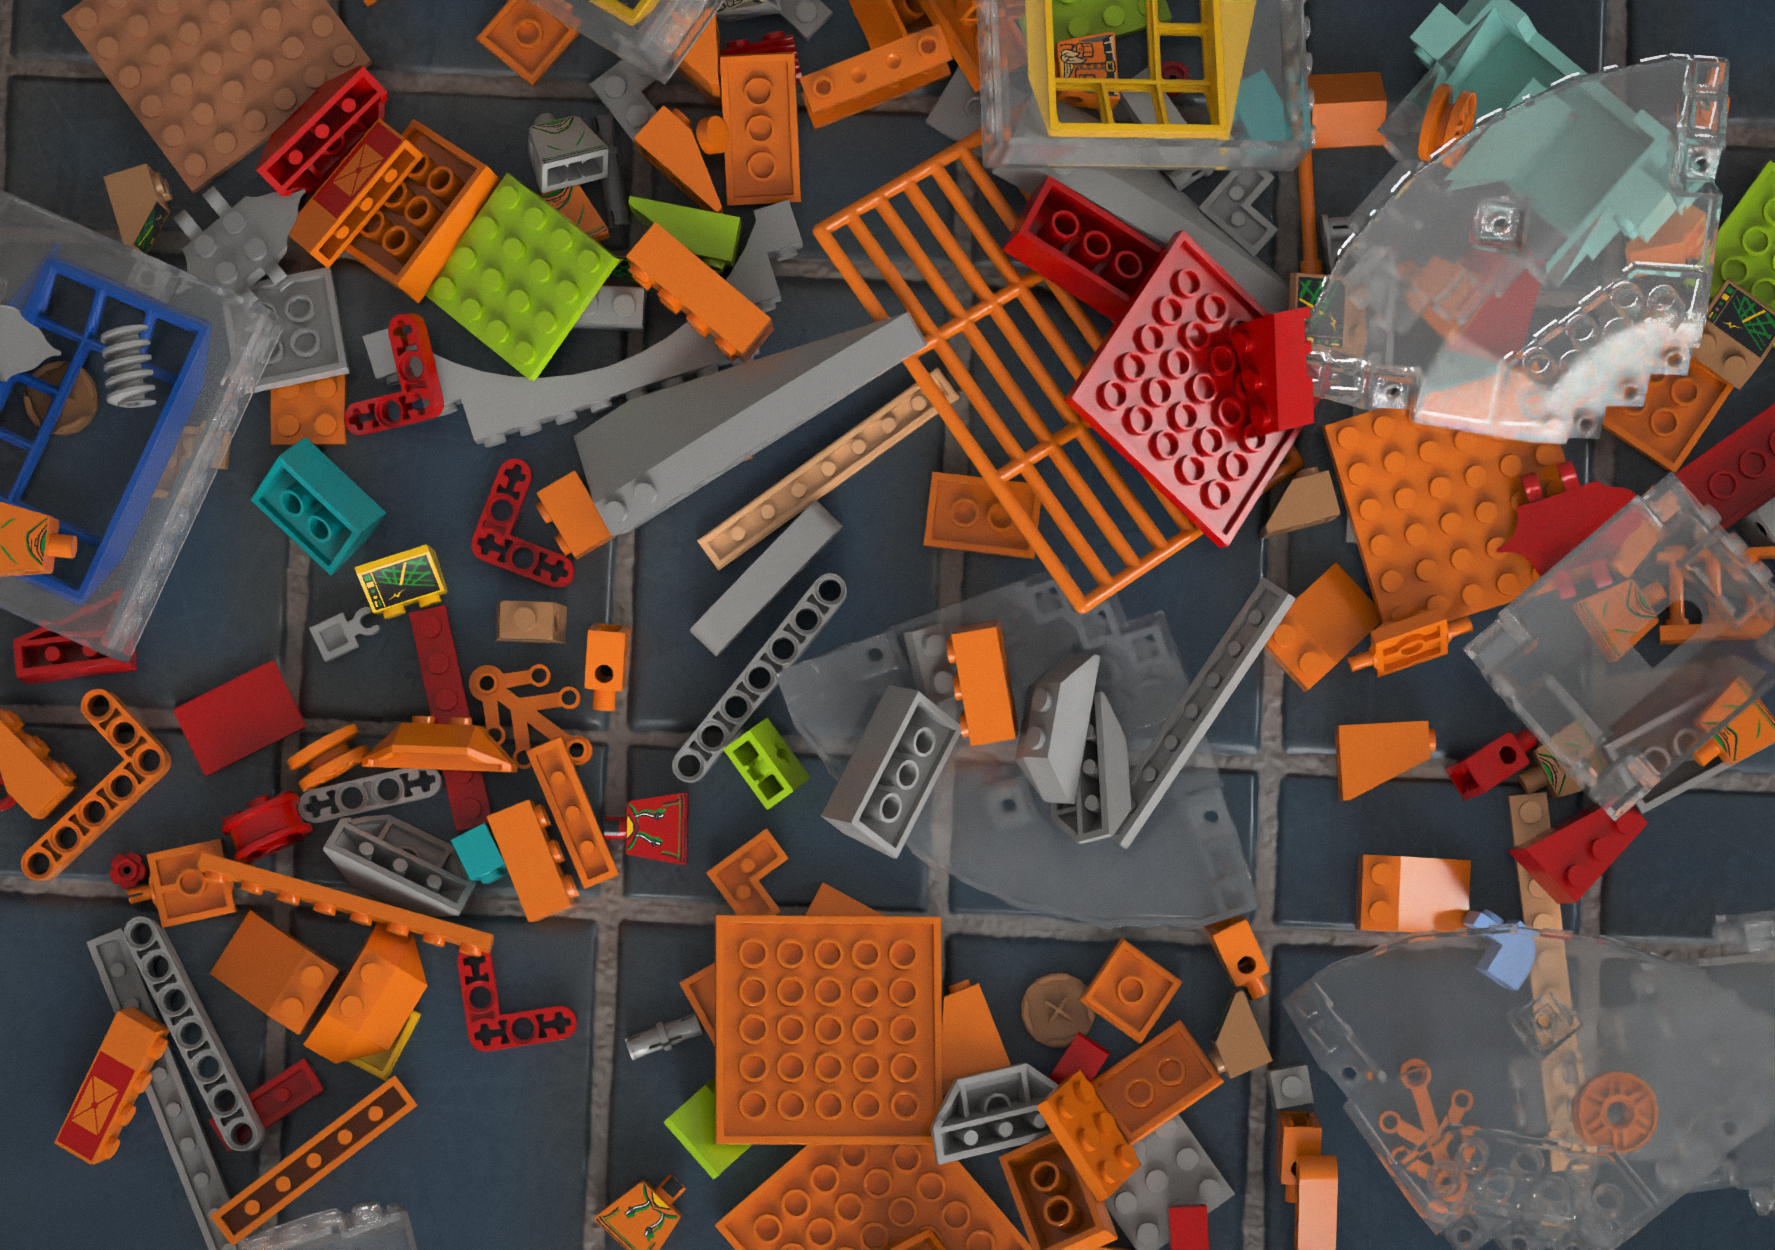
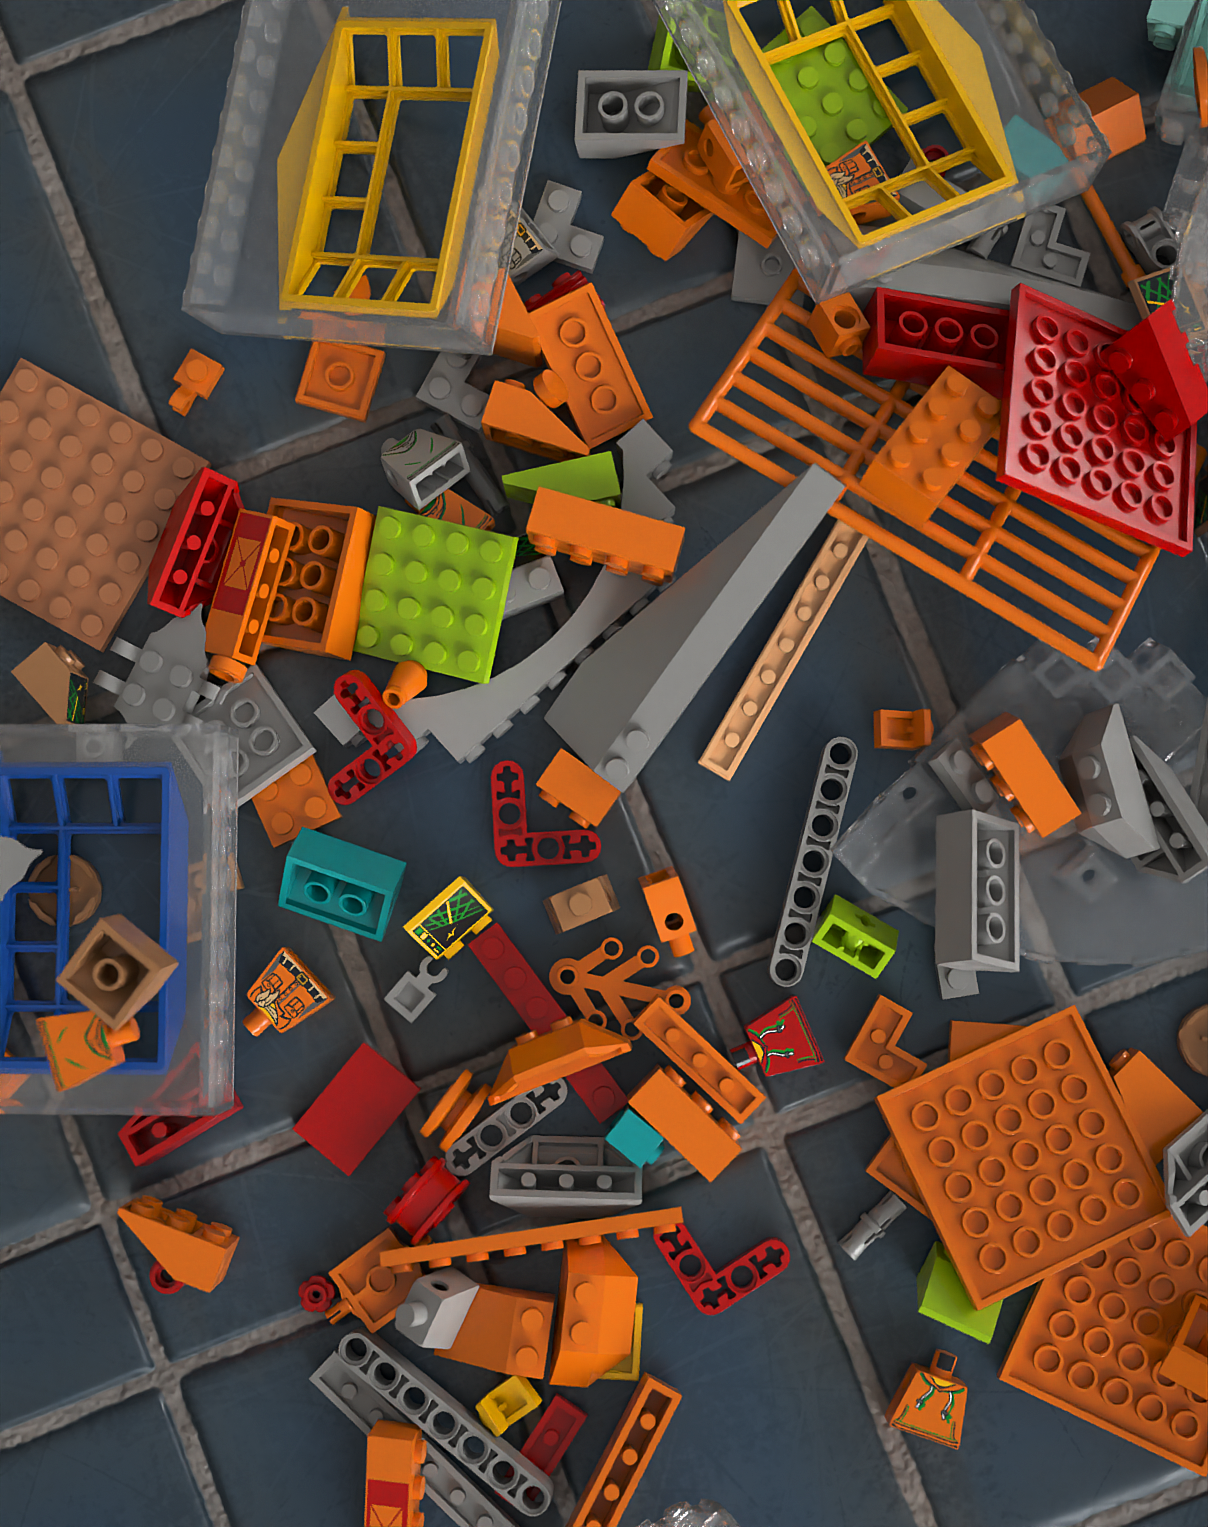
camera: 20 degrees left, 0 degrees up
(81, 488) = (116, 970): none -> medium nougat slope
(105, 791) = (265, 1233): orange beam -> none
(127, 366) = (109, 837): light grey piece -> none
(221, 584) = (285, 994): none -> torso
(230, 928) = (436, 1308): none -> light grey torso
(256, 1046) = (507, 1403): none -> yellow bracket
(301, 261) = (227, 669): none -> orange tile
(457, 347) = (406, 682): none -> orange cone
(766, 578) = (776, 769): light grey beam -> none
(843, 849) = (956, 982): none -> light grey plate
(876, 76) = (673, 272): orange fence -> none
(898, 594) = (902, 729): none -> orange bracket
(970, 518) = (941, 628): orange plate -> none
(1007, 184) = (838, 326): none -> orange brick
(1028, 345) = (933, 447): none -> orange brick

